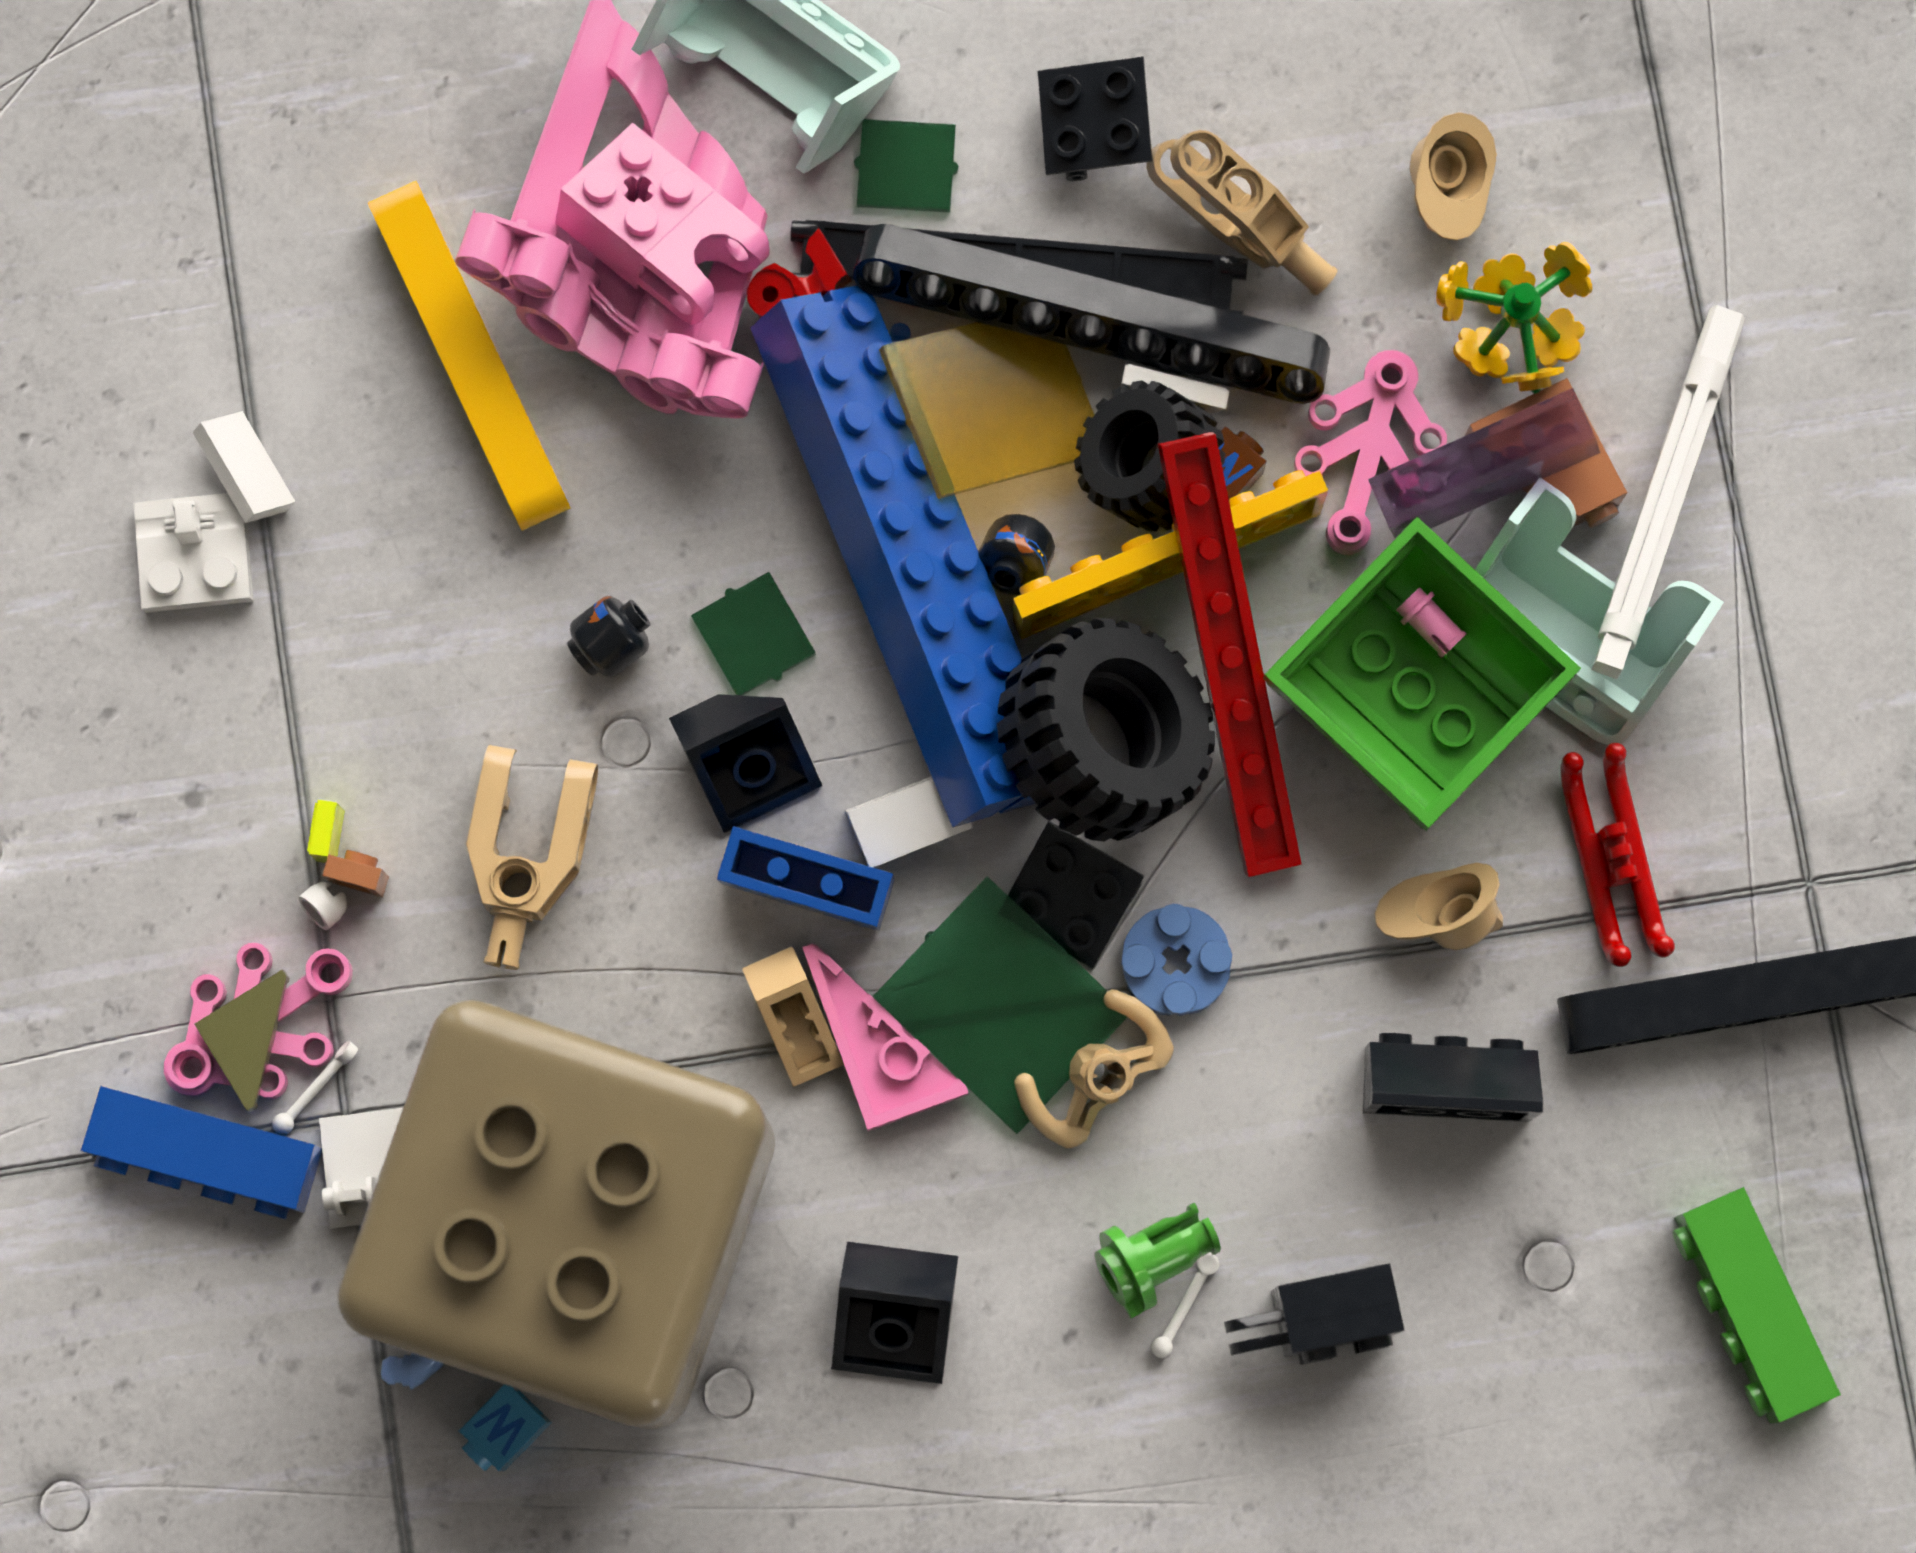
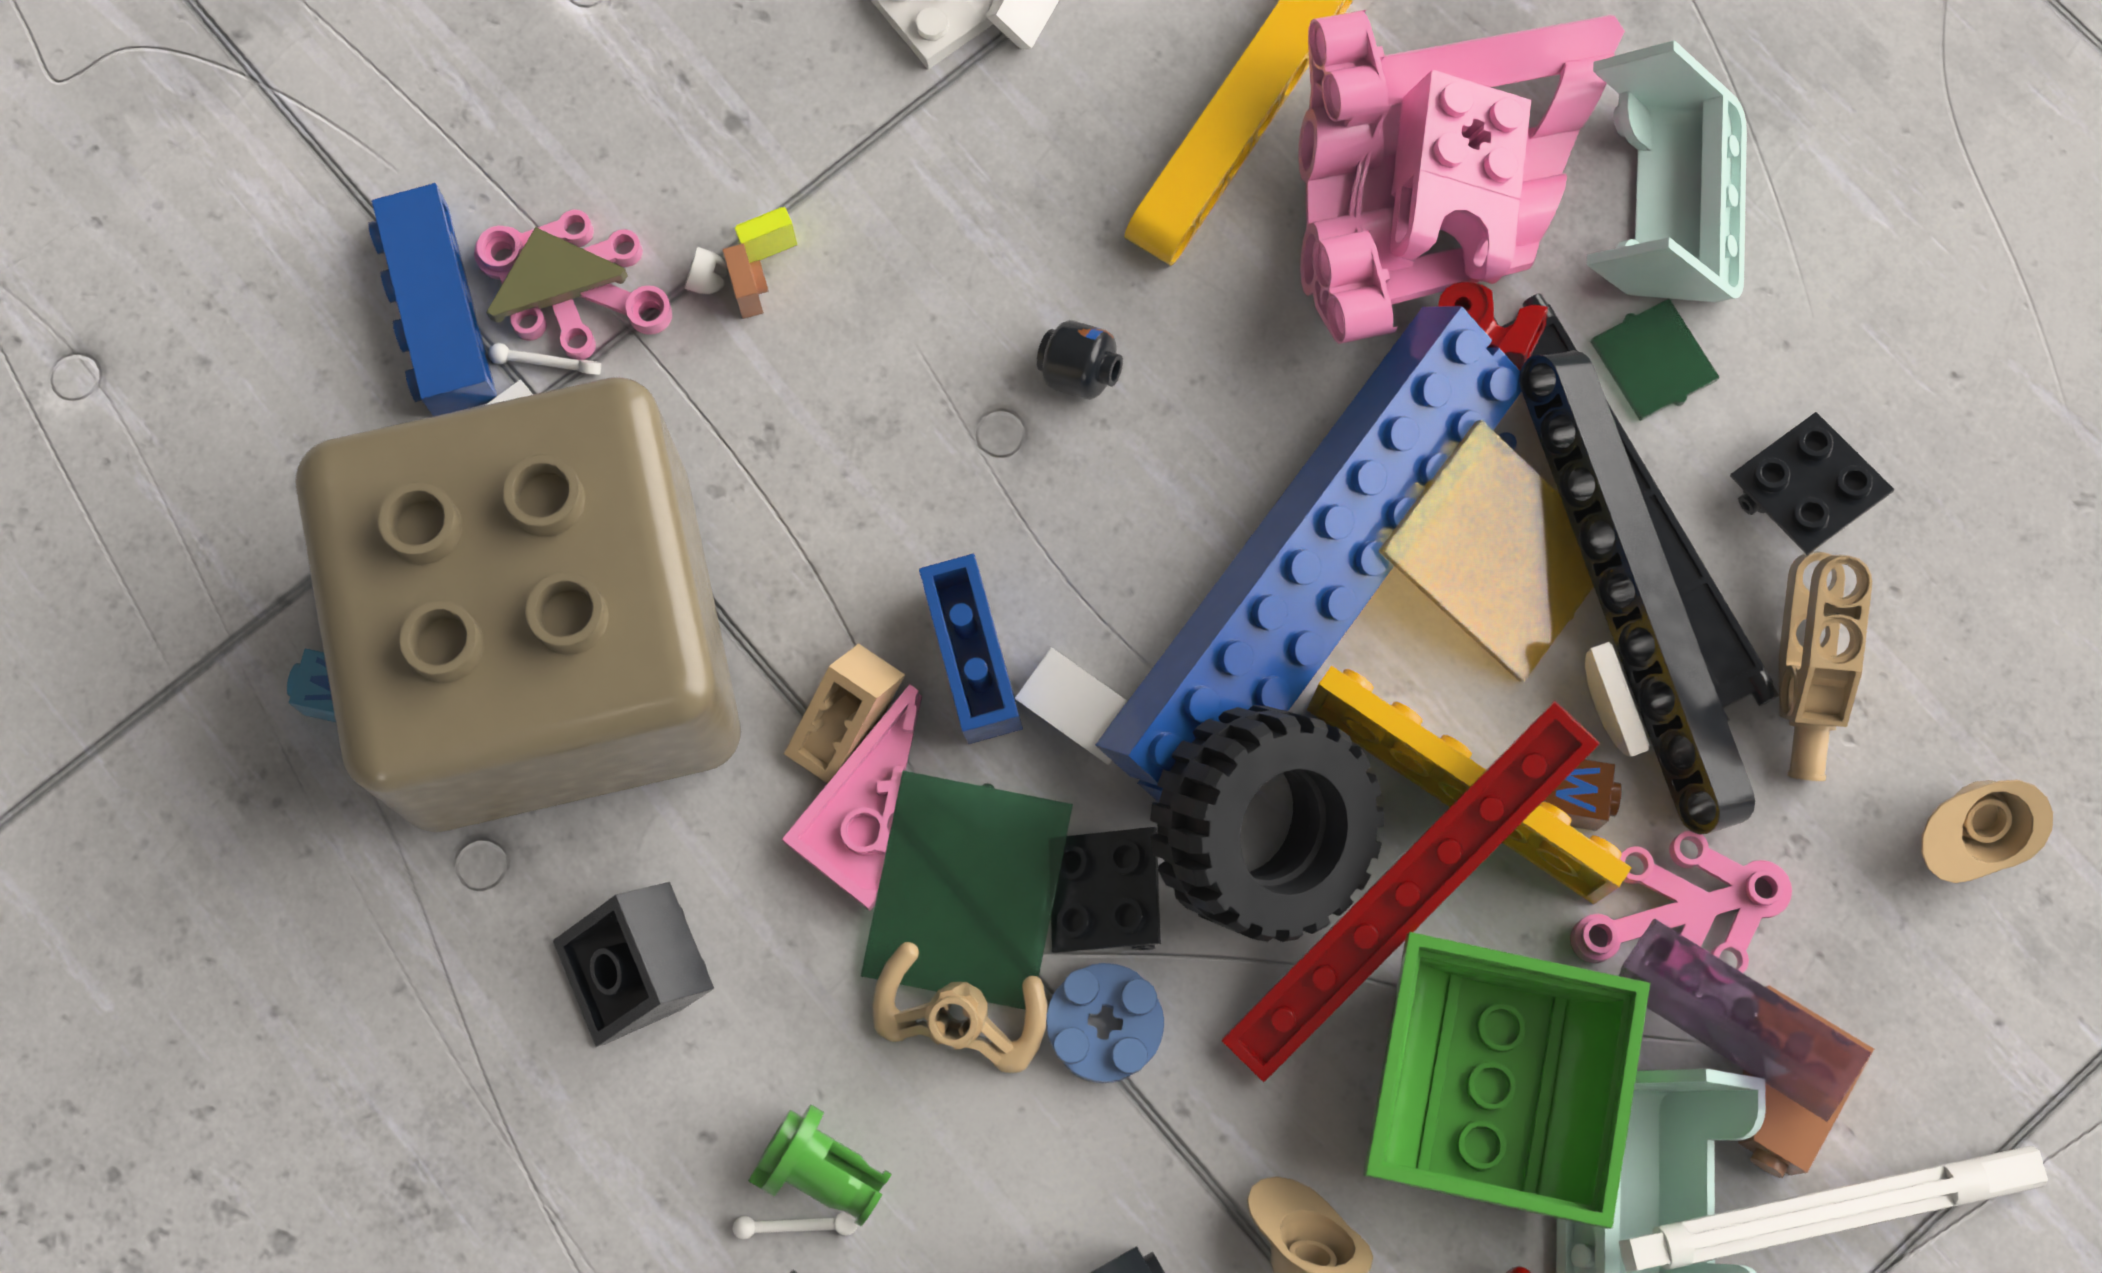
camera: 55 degrees right, 5 degrees down
(548, 878) = (865, 437): tan piece -> none
(745, 755) = (1046, 533): black slope -> none
(753, 634) = (1161, 481): clear green piece -> none
(1016, 552) = (1380, 651): black head -> none
(1119, 442) = (1524, 681): black tyre -> none
(1430, 621) = (1562, 1060): bright pink pin -> none
(1511, 293) = (1910, 957): yellow plant -> none

